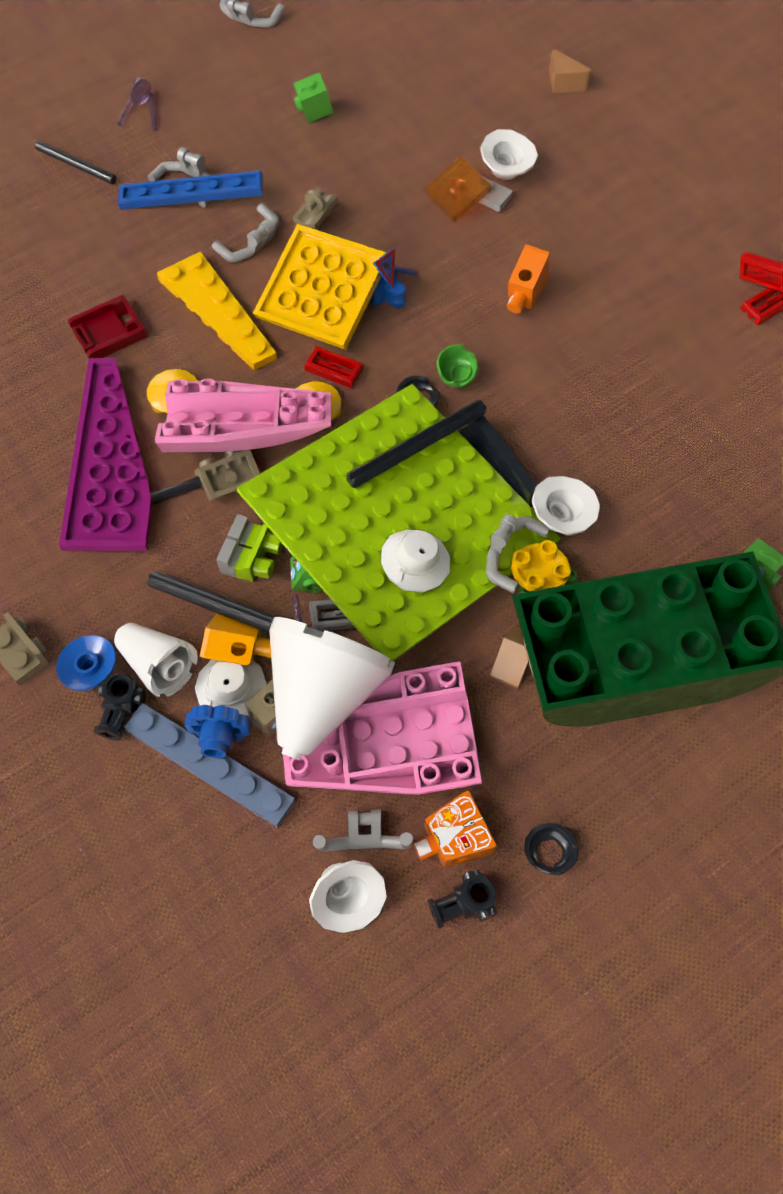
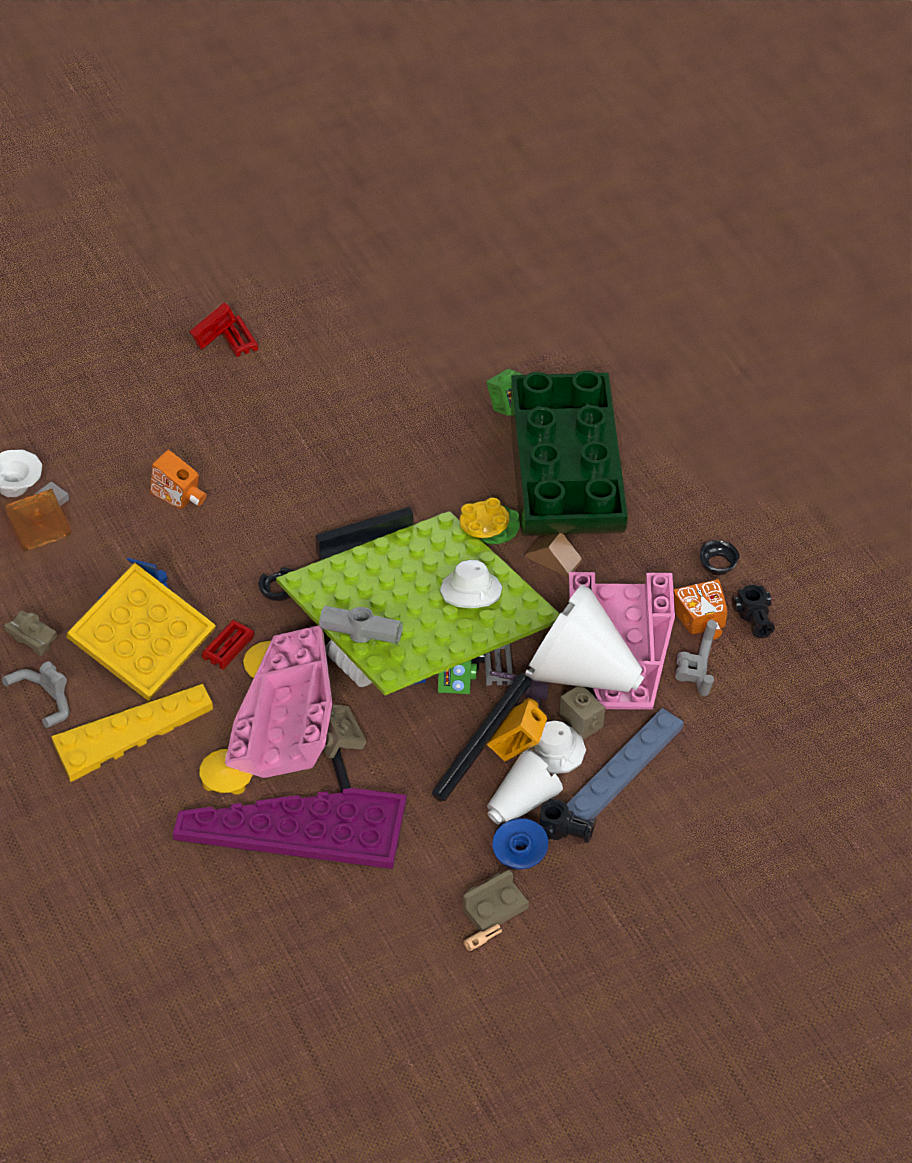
camera: 85 degrees left, 15 degrees down
(102, 331) = (132, 829): dark red container -> none
(217, 728) = (603, 744): blue plant -> none
(245, 550) = (423, 720): hips -> none
(321, 462) = (361, 624): none -> light grey piece
(348, 896) = (745, 675): white hat -> none
(415, 444) = (354, 572): black axle -> none
(457, 366) = (260, 548): bright green hair -> none
(500, 537) = (460, 532): light grey piece -> none
(565, 505) = (428, 494): white hat -> none

